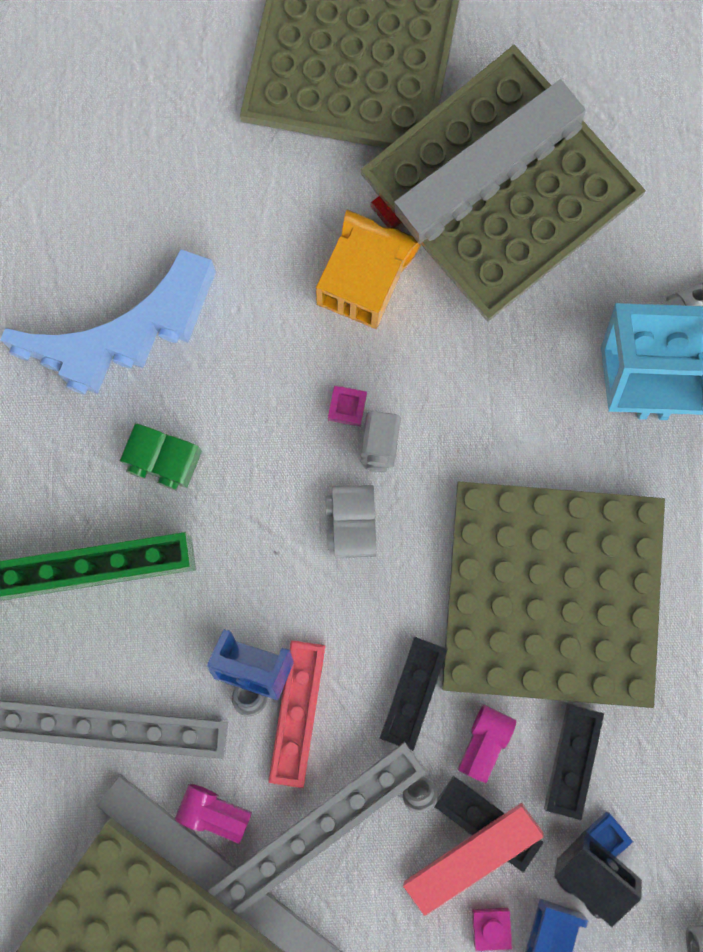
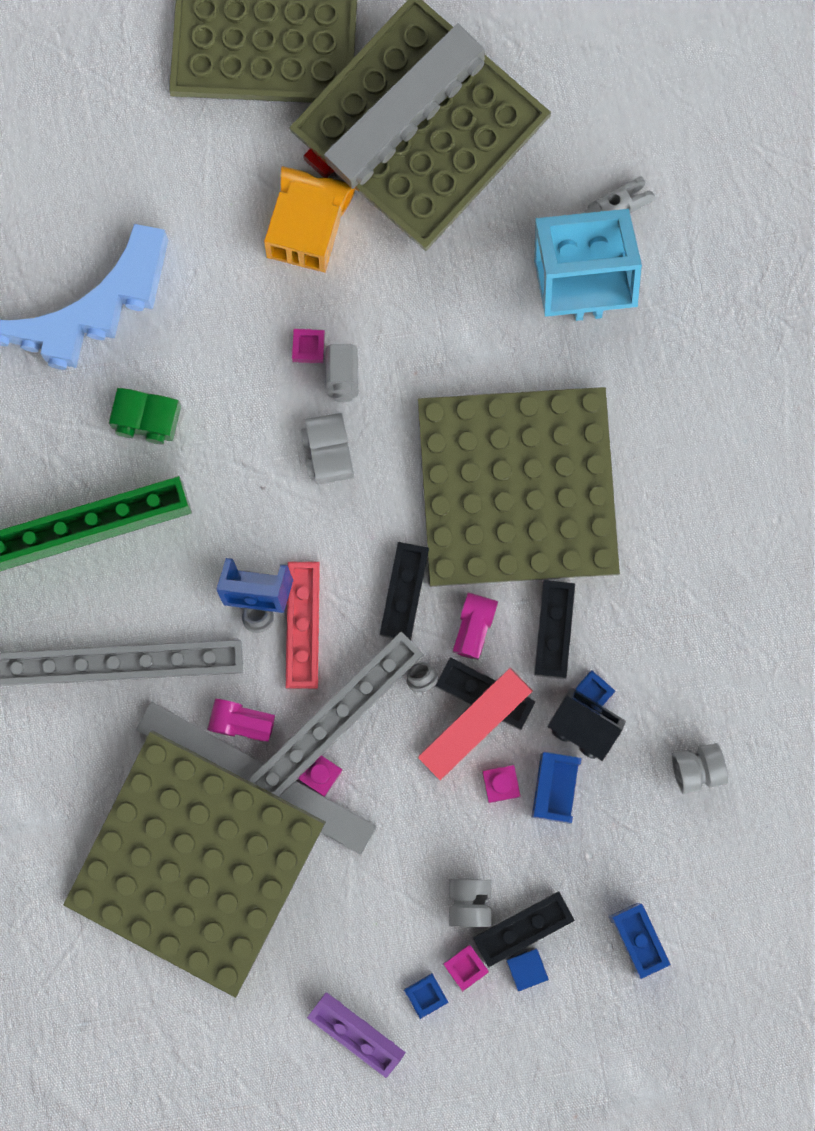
camera: 10 degrees left, 0 degrees up
(294, 890) = (321, 775): none -> dark pink plate

